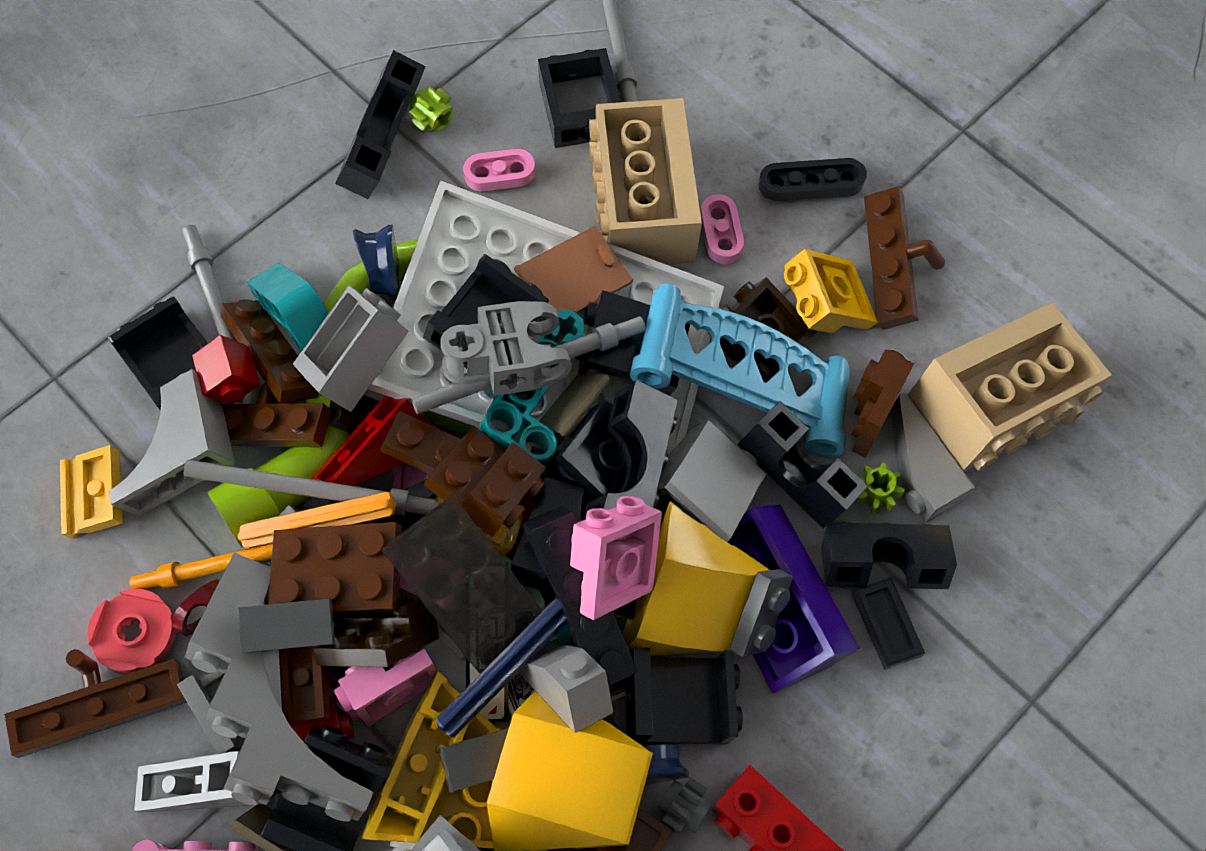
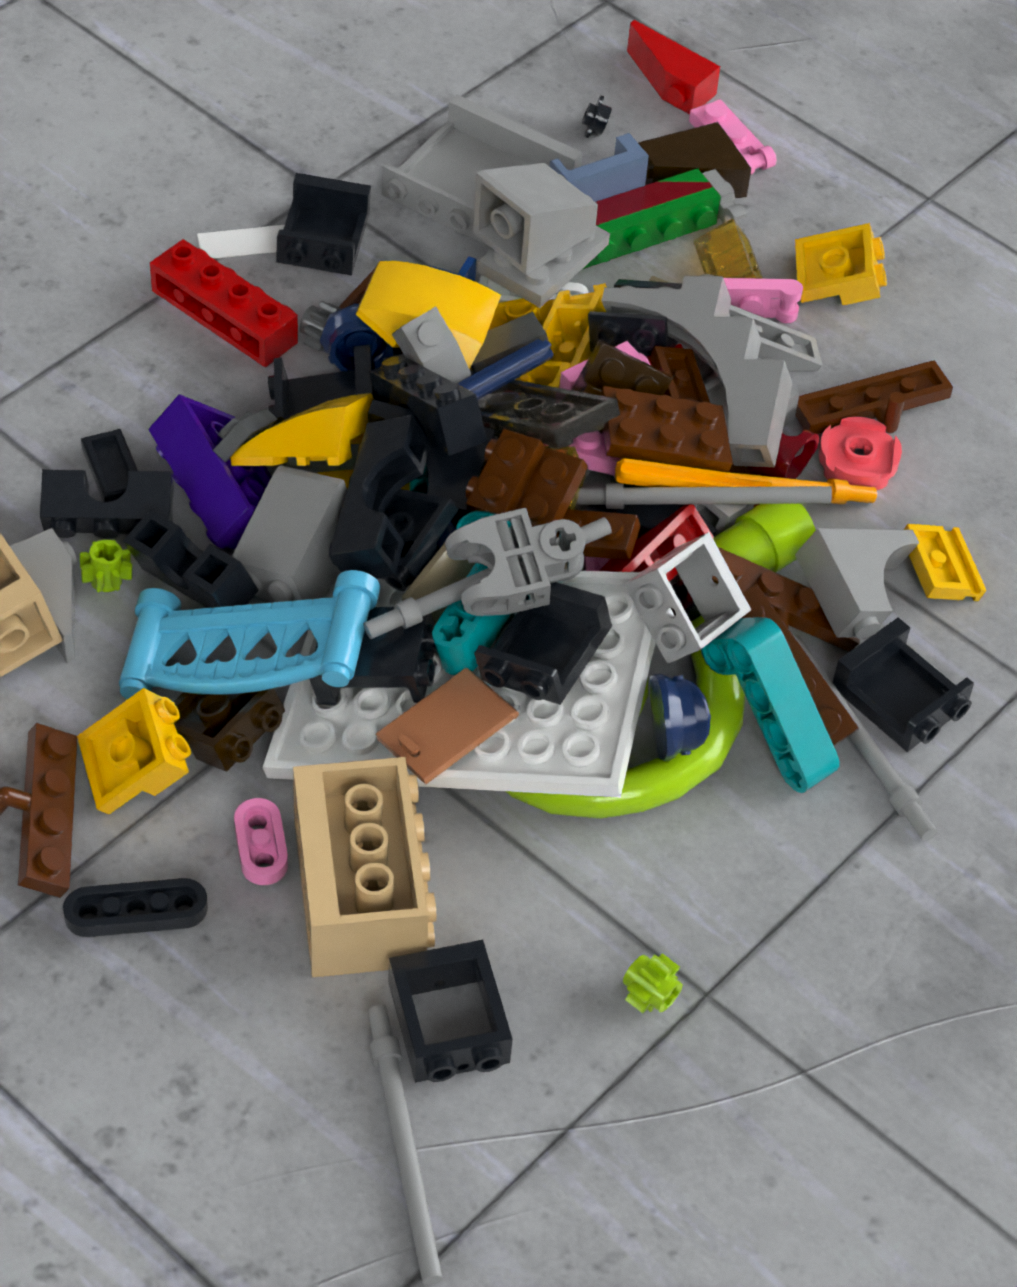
camera: 175 degrees right, 15 degrees down
(226, 370) = (825, 624): red brick -> none
(286, 625) = (698, 374): dark grey tile -> none
(379, 125) = (708, 994): black arch -> none
(499, 169) = (549, 910): bright pink plate -> none
(616, 554) = (404, 372): bright pink plate -> none
(877, 395) = (91, 626): reddish brown plate -> none

